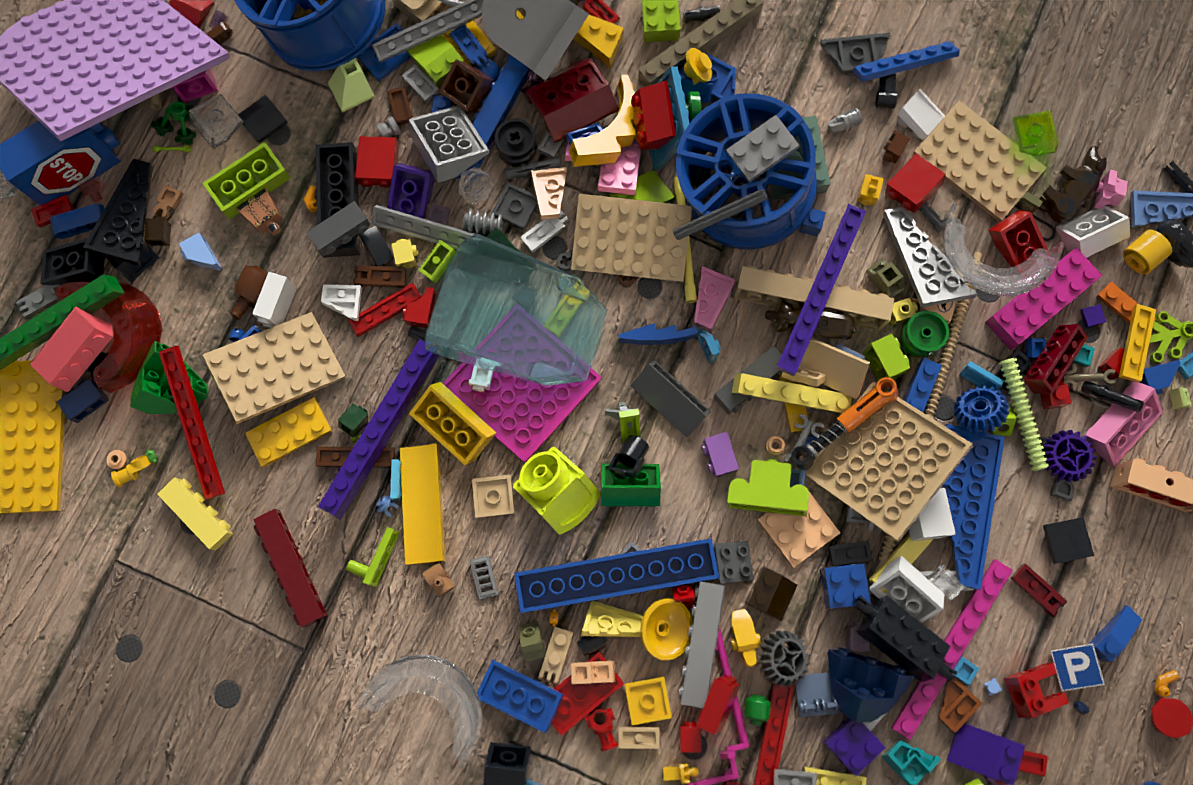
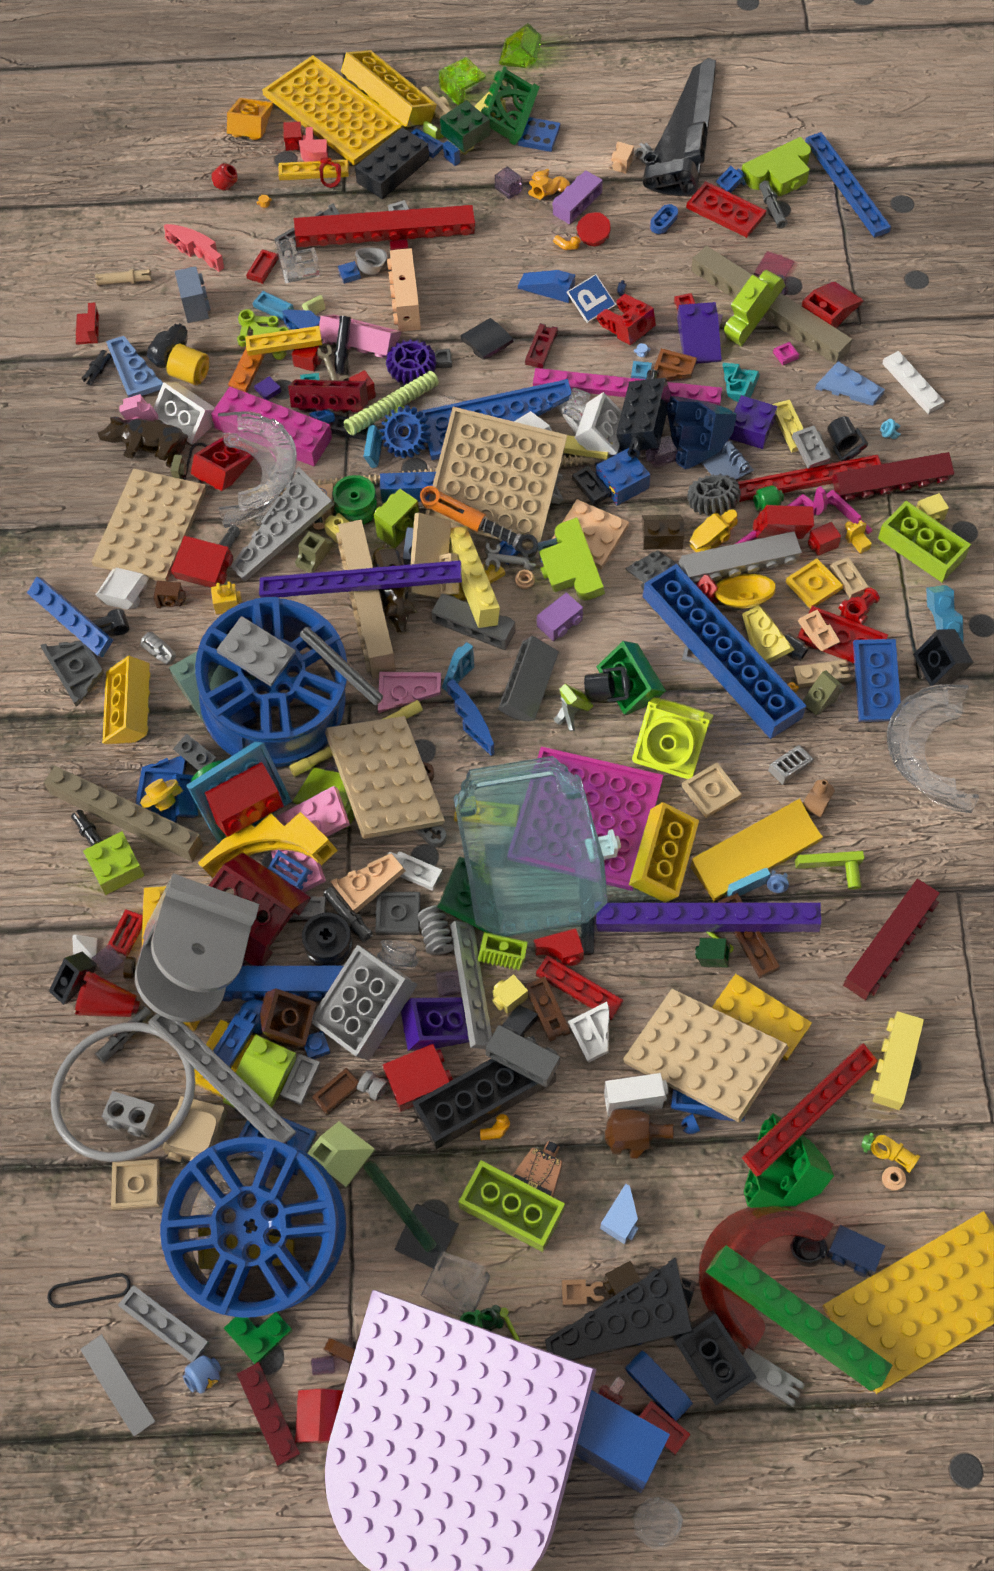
camera: 115 degrees left, 15 degrees down
(72, 349) = (811, 1271): coral slope -> none
(289, 107) = (400, 1206): none -> clear green axle
(803, 79) = (126, 701): none -> yellow slope
(1036, 133) = (103, 482): clear neon green slope -> none

